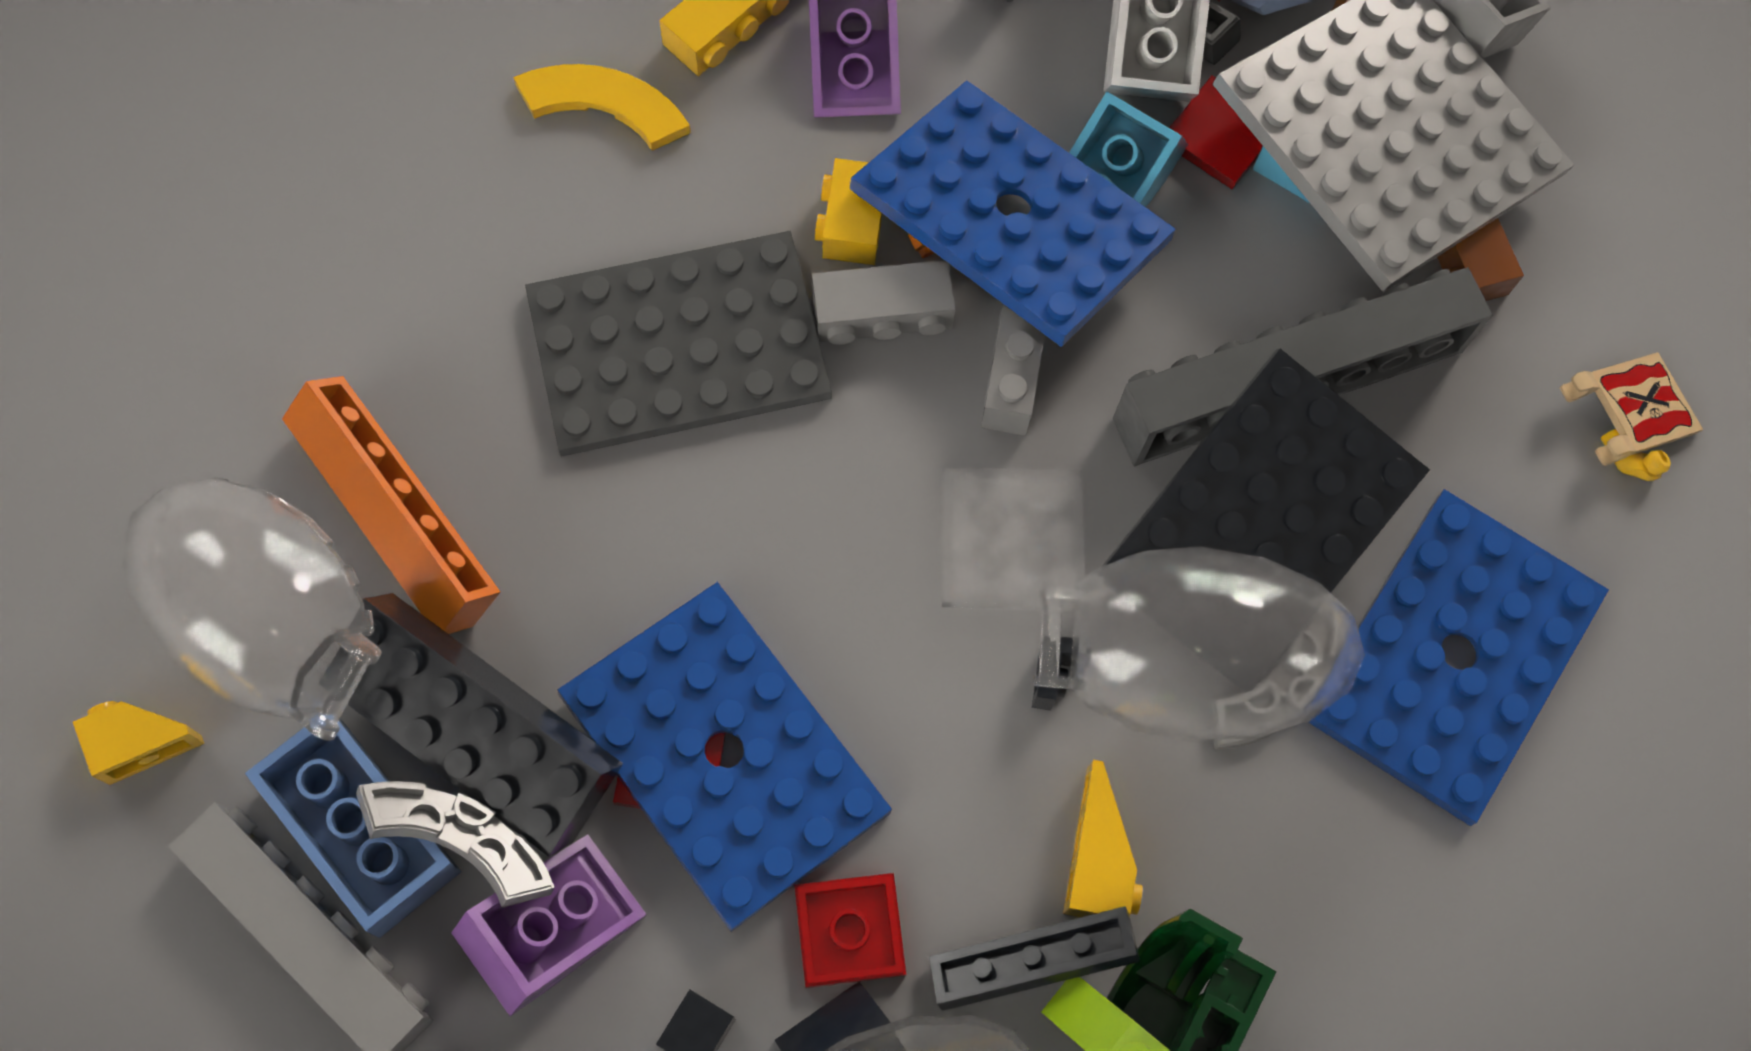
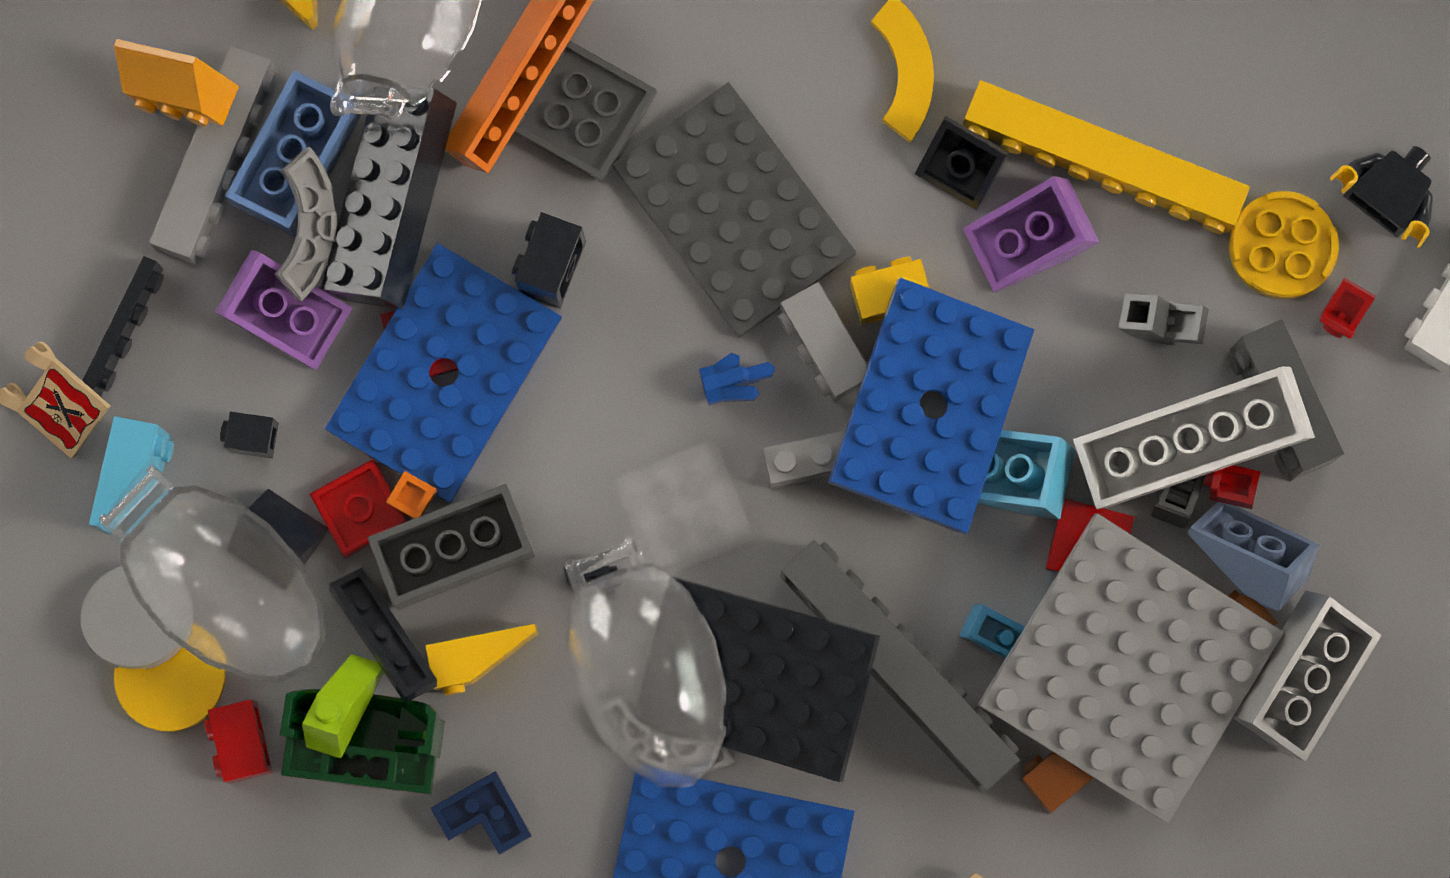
camera: 75 degrees right, 10 degrees up
(176, 939) = (173, 84): none -> light orange slope
(481, 454) = (585, 111): none -> dark grey plate
(644, 558) = (549, 259): none -> black brick
(740, 80) = (961, 163): none -> black slope
(867, 851) = (411, 496): none -> orange tile
(882, 437) = (729, 381): none -> blue rock
(954, 826) = (451, 547): none -> dark grey brick
(1291, 260) = (991, 630): none -> dark azure slope
(1291, 918) = (483, 803): none -> dark blue plate

